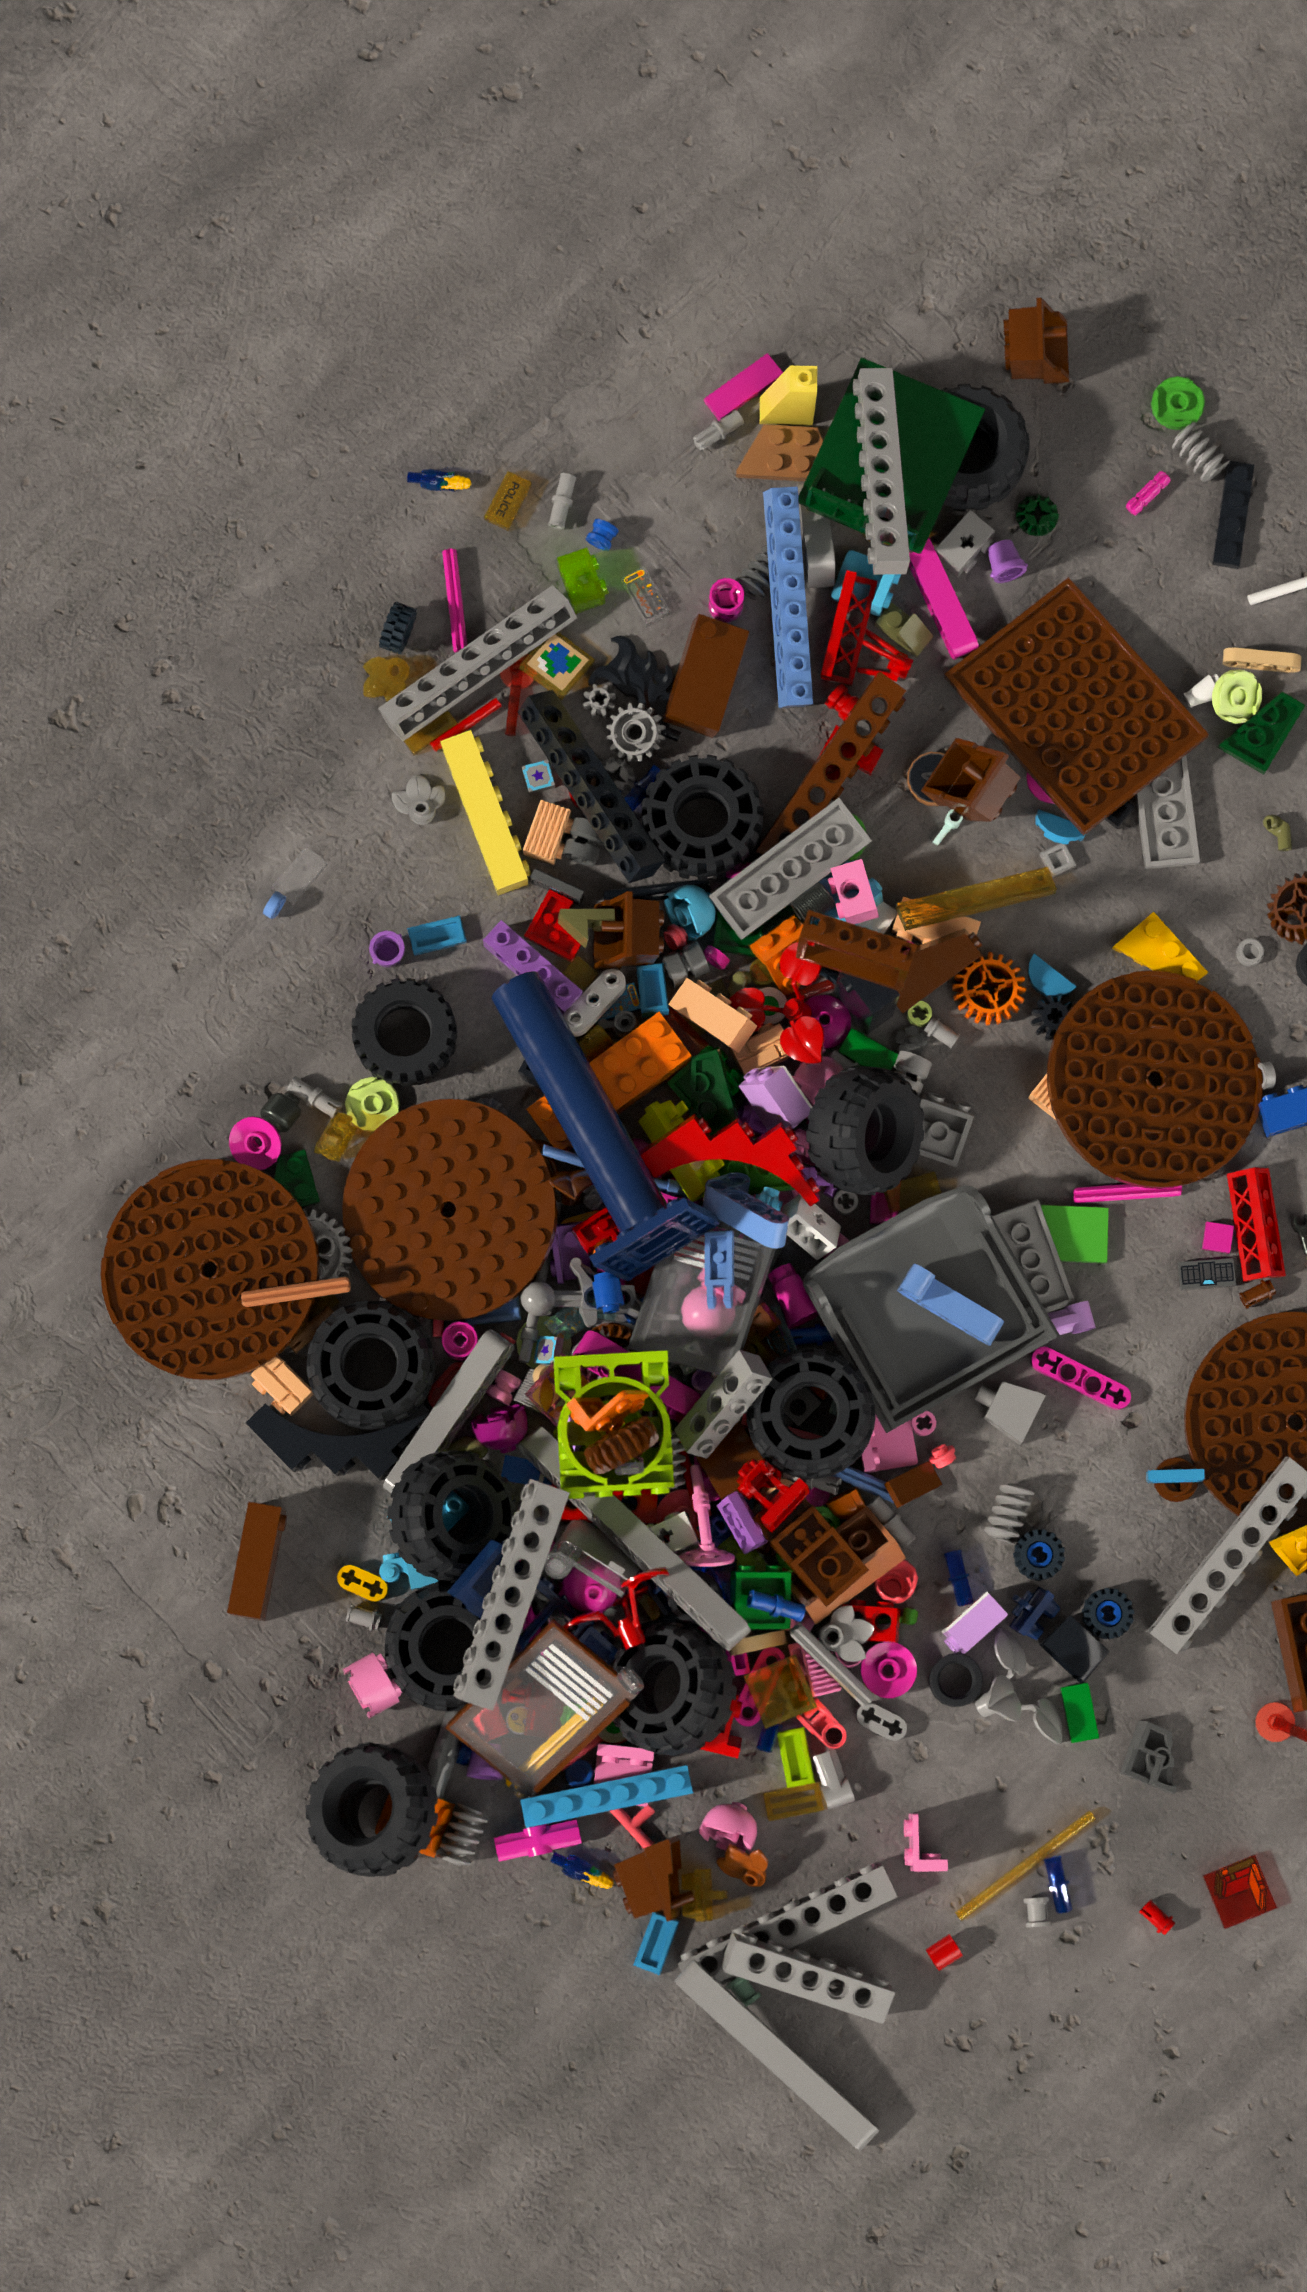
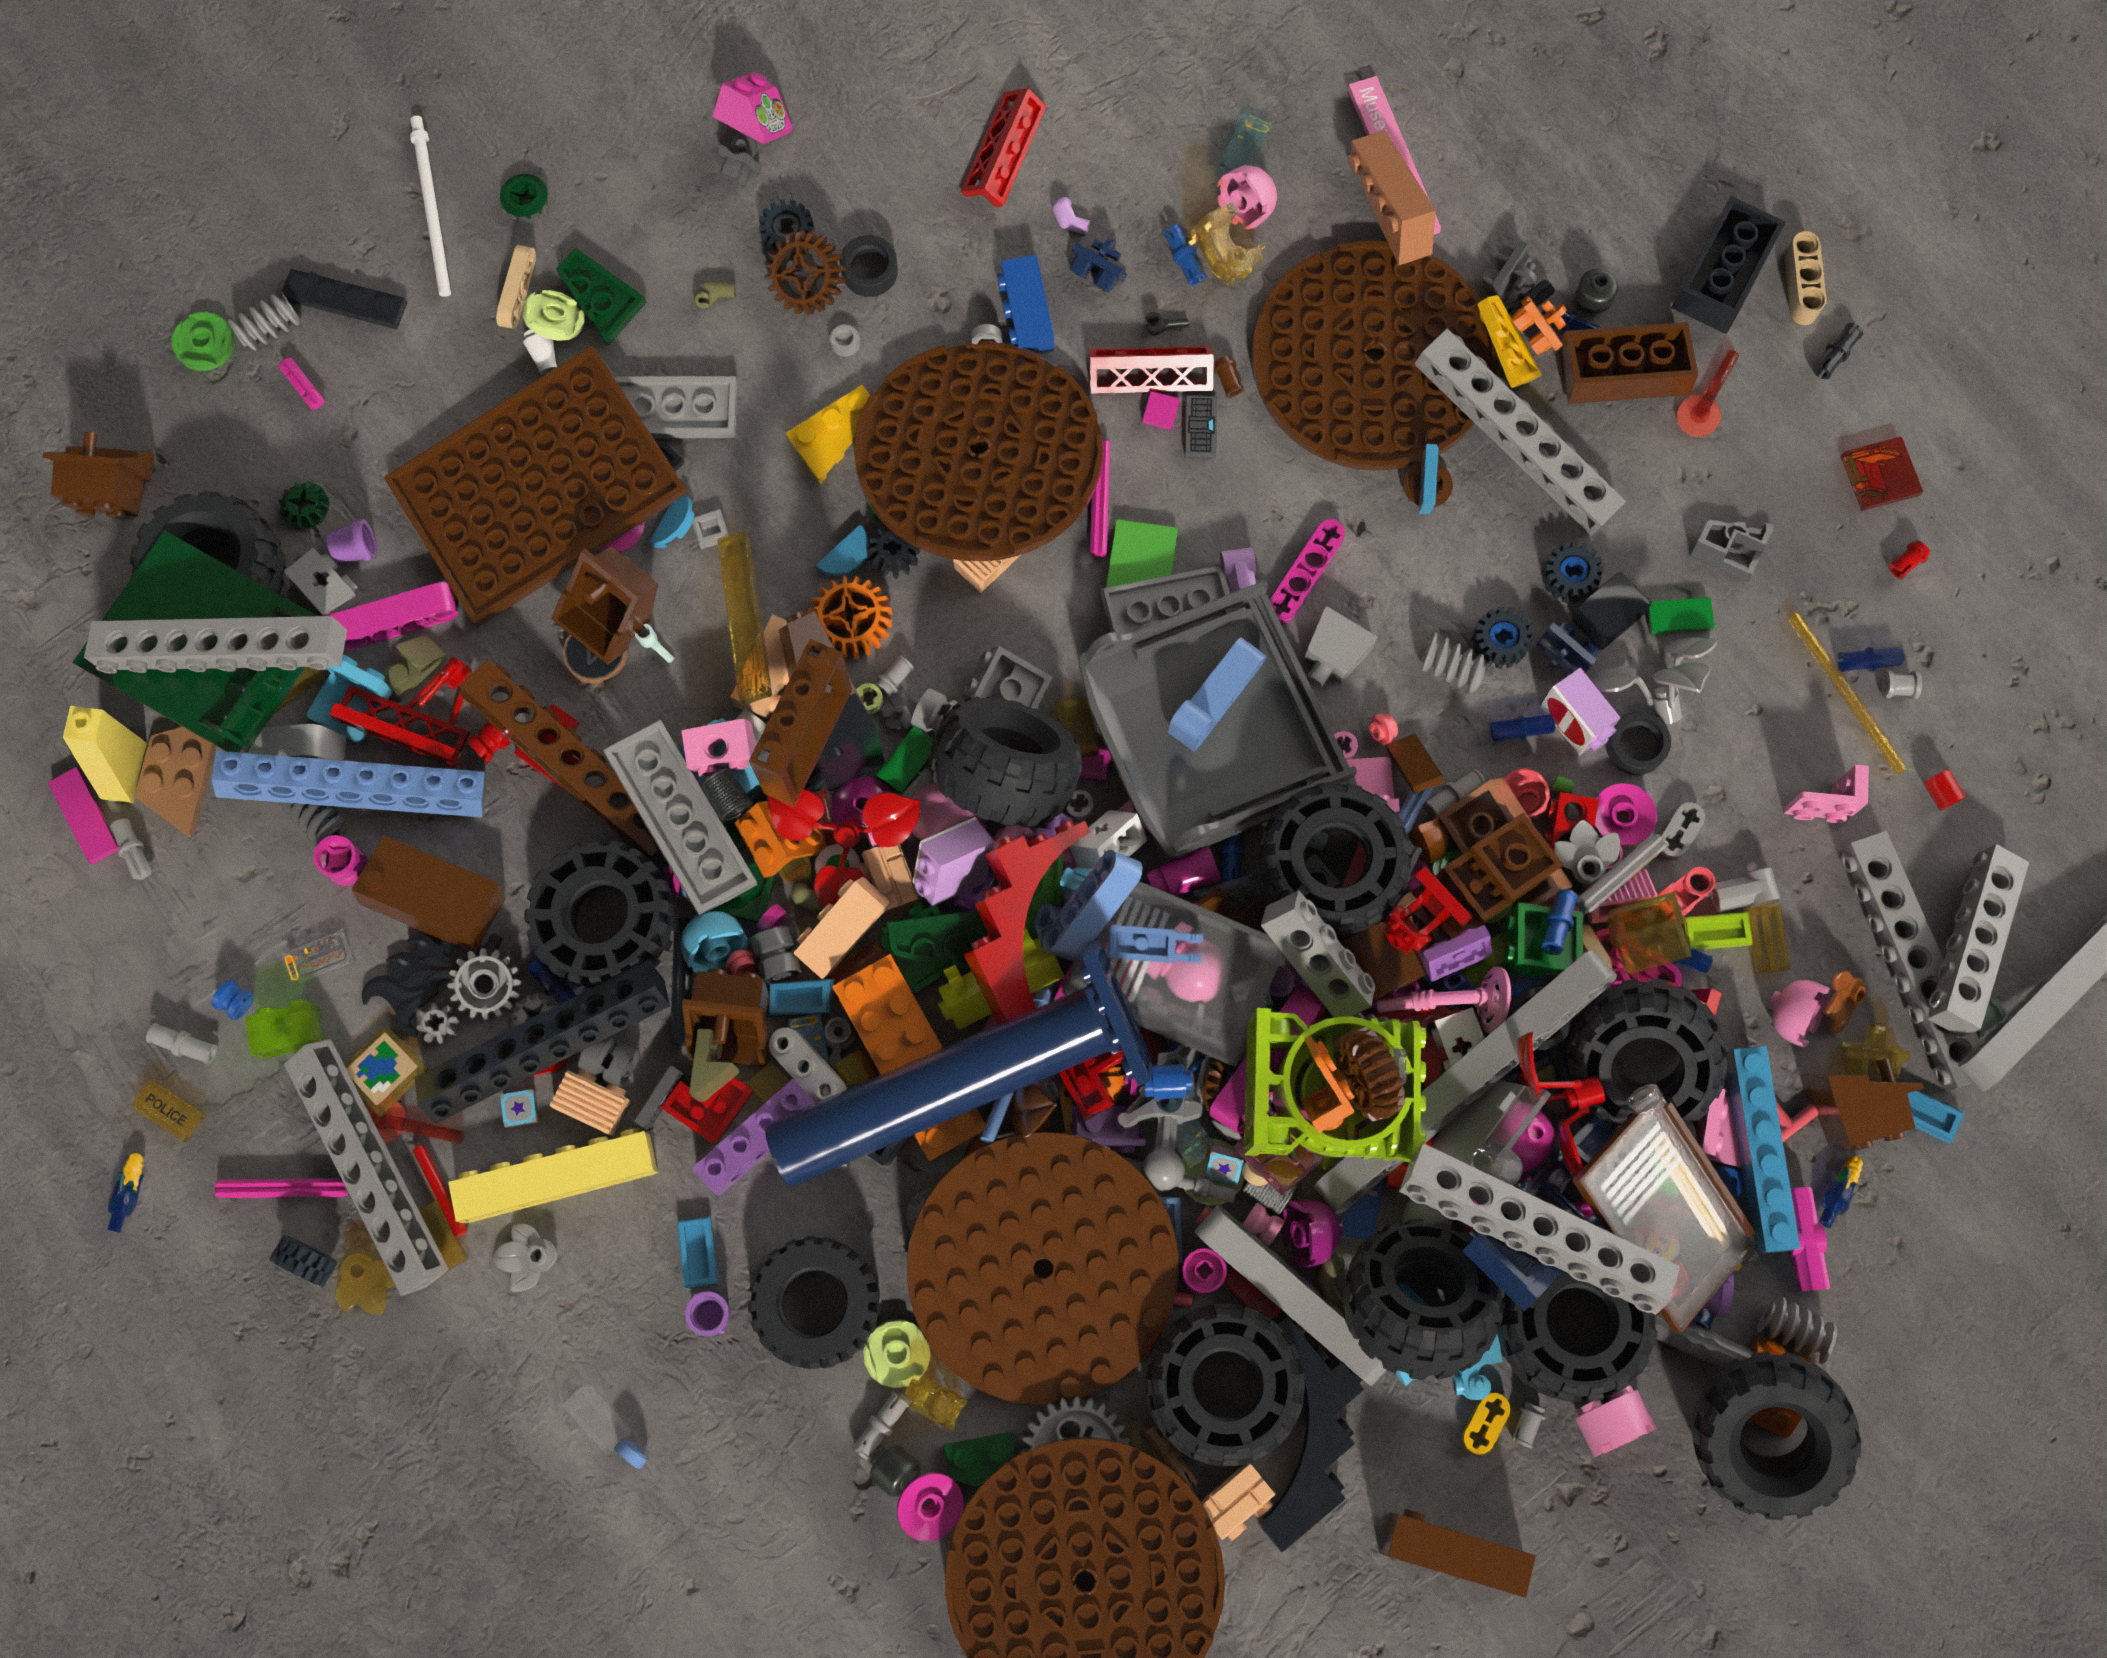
camera: 80 degrees left, 5 degrees down
(295, 1291) = (1128, 1470): nougat axle -> none

